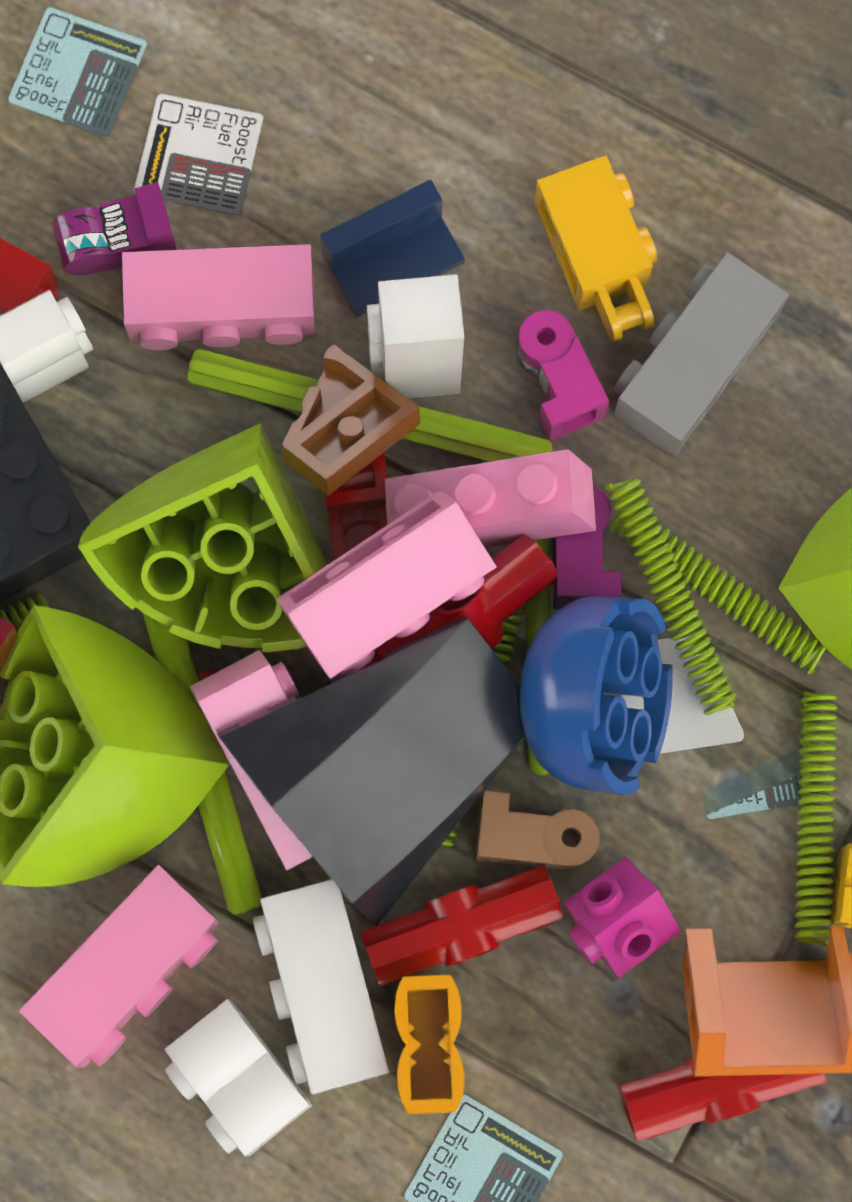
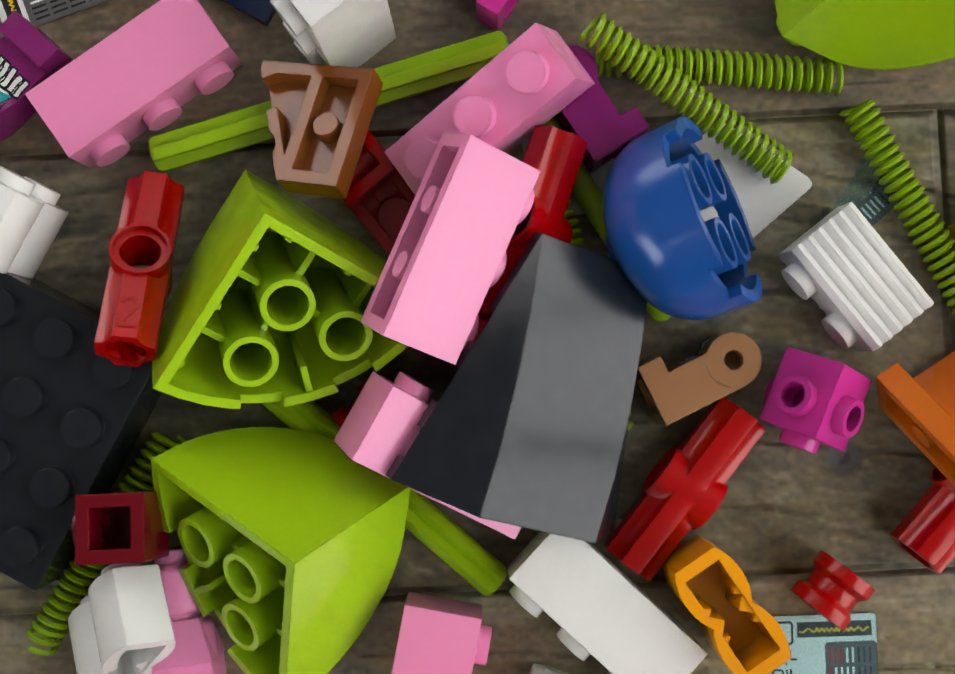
camera: 30 degrees left, 10 degrees up
(123, 449) = (134, 296): none -> red piece
(535, 1097) = (832, 590): none -> red wheel
(720, 836) = (853, 280): none -> white brick

